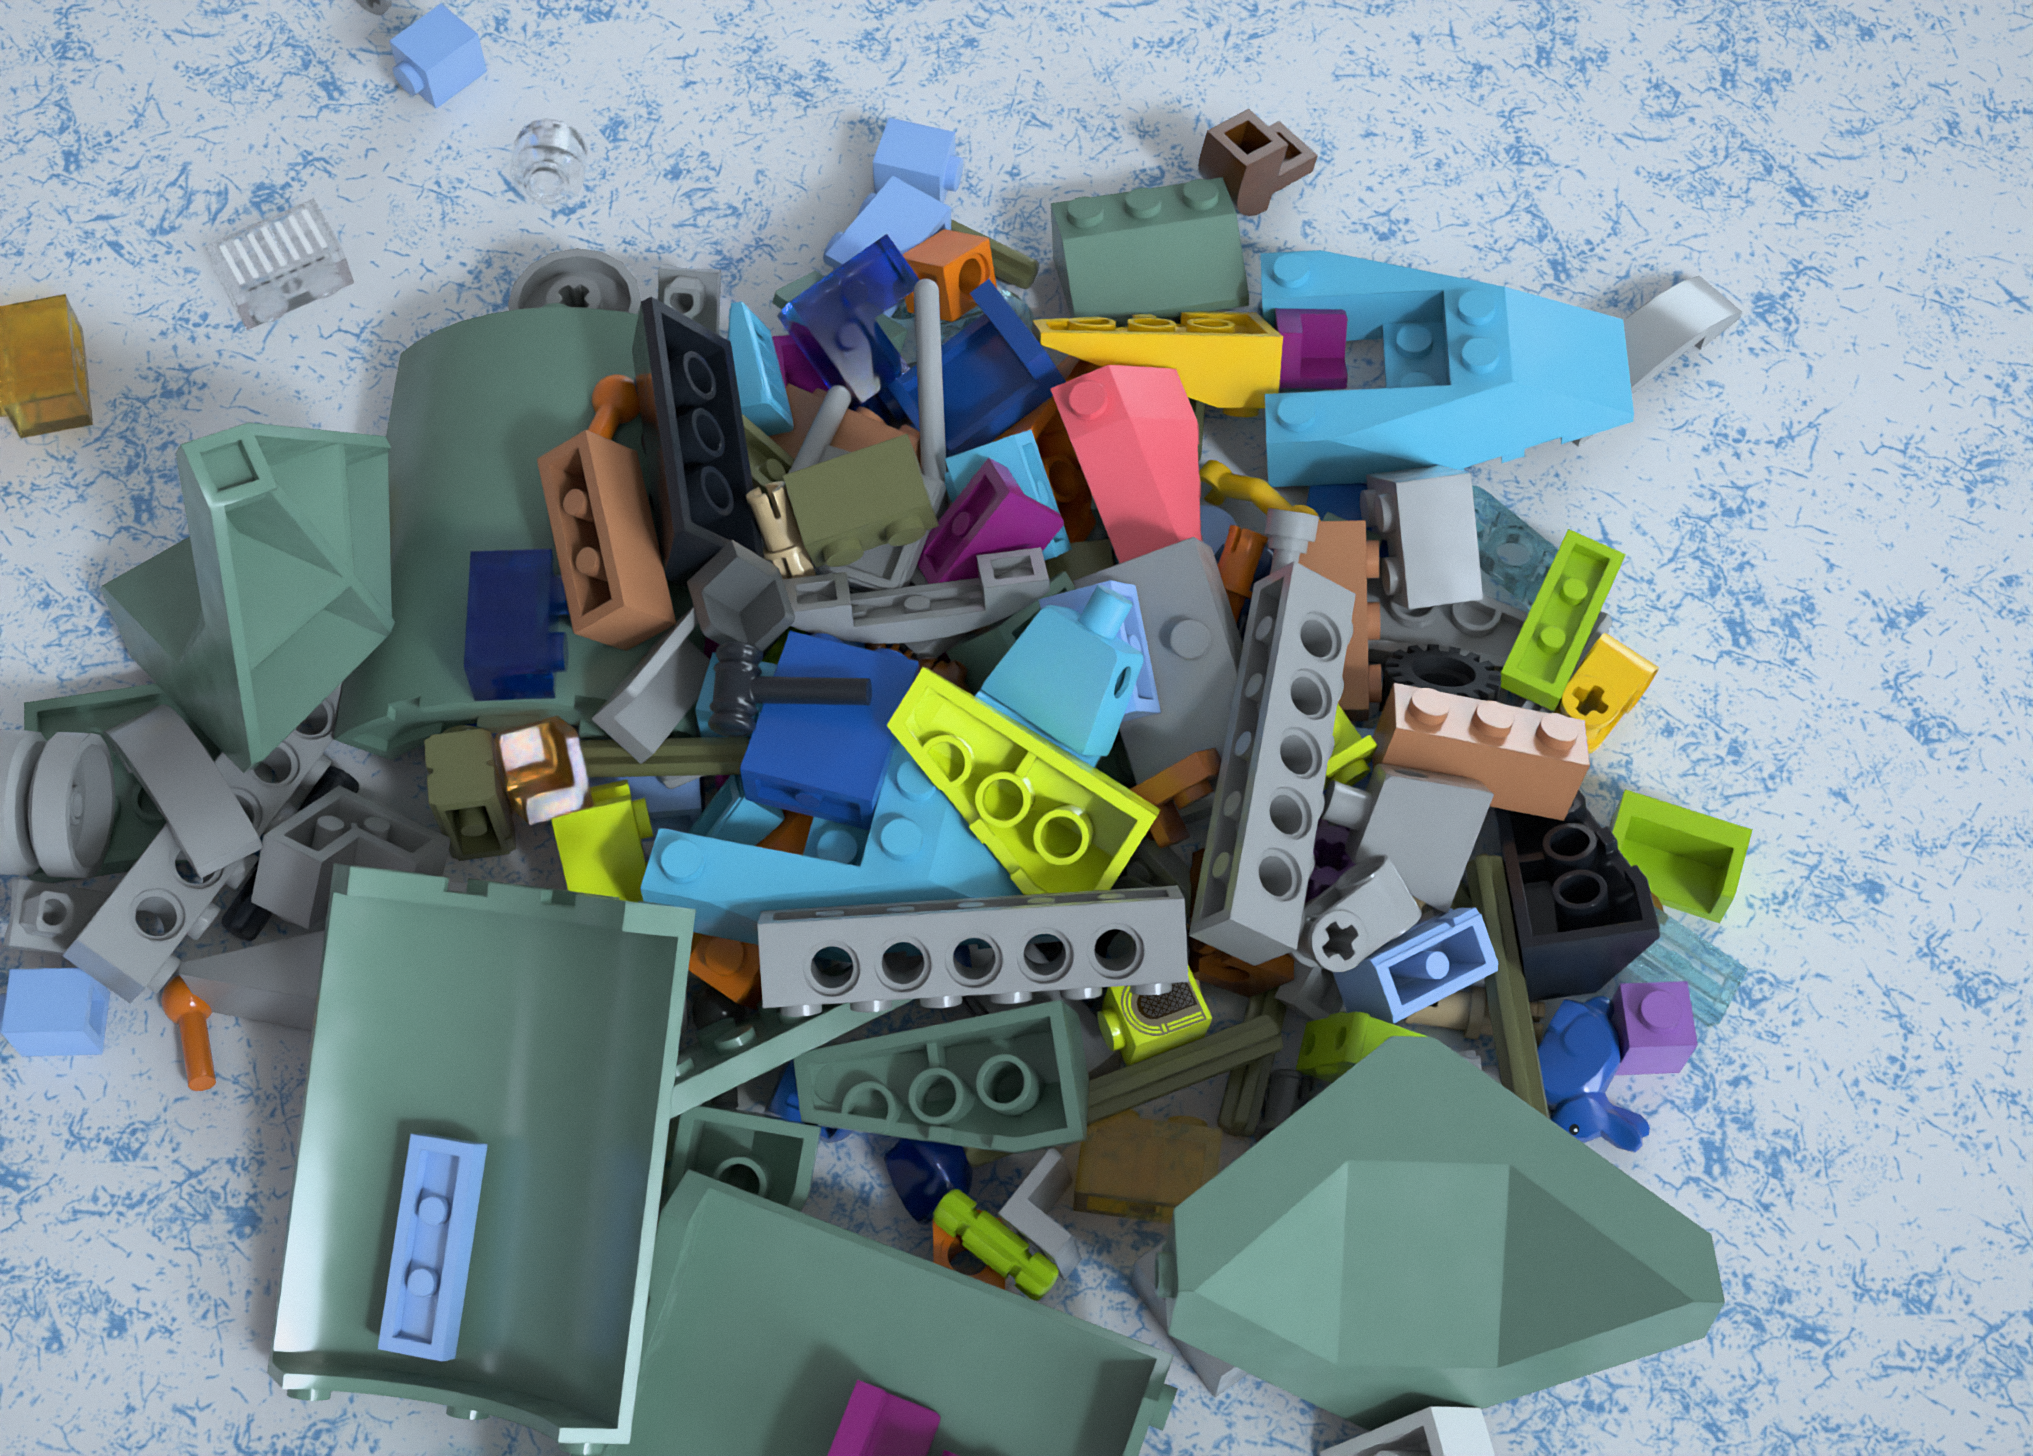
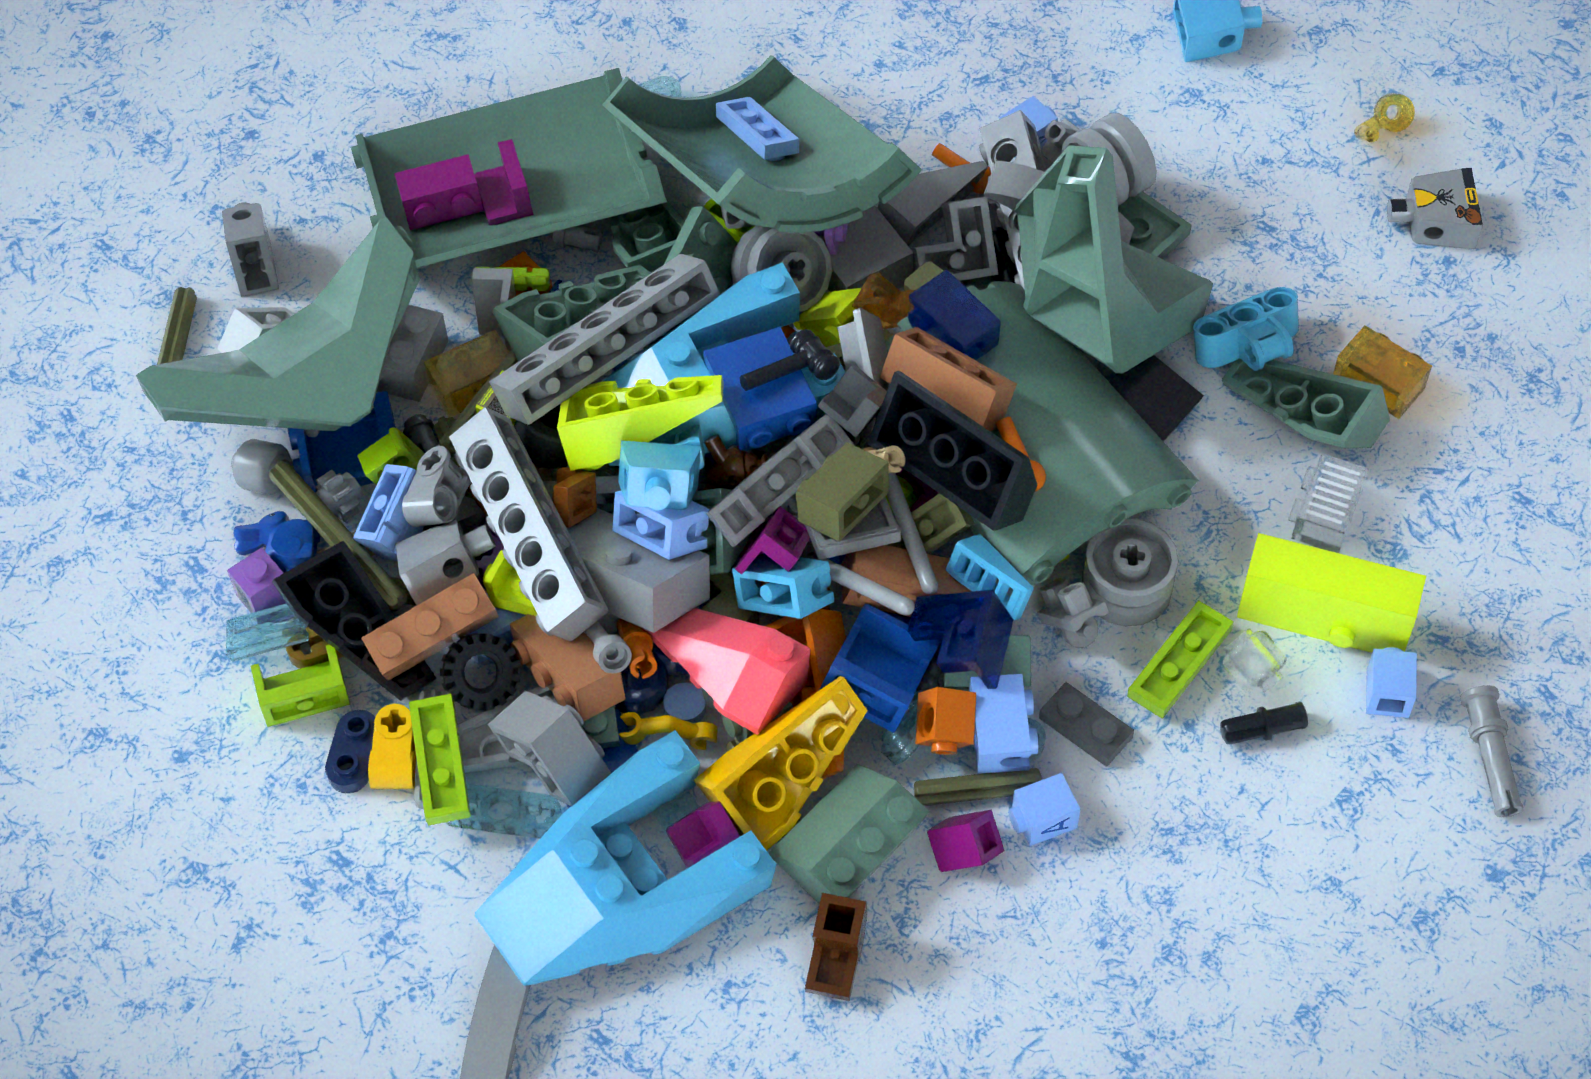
camera: 145 degrees right, 5 degrees down
(124, 476) = (1249, 330): none -> medium azure piece
(169, 365) = (1314, 402): none -> sand green wedge
(408, 146) = (1330, 595): none -> neon yellow brick
(602, 109) = (1264, 723): none -> black axle
(622, 218) = (1180, 659): none -> lime plate
(781, 231) = (1086, 724): none -> dark grey plate
(1023, 190) = (965, 841): none -> magenta panel
(1651, 738) = (350, 748): none -> dark blue plate

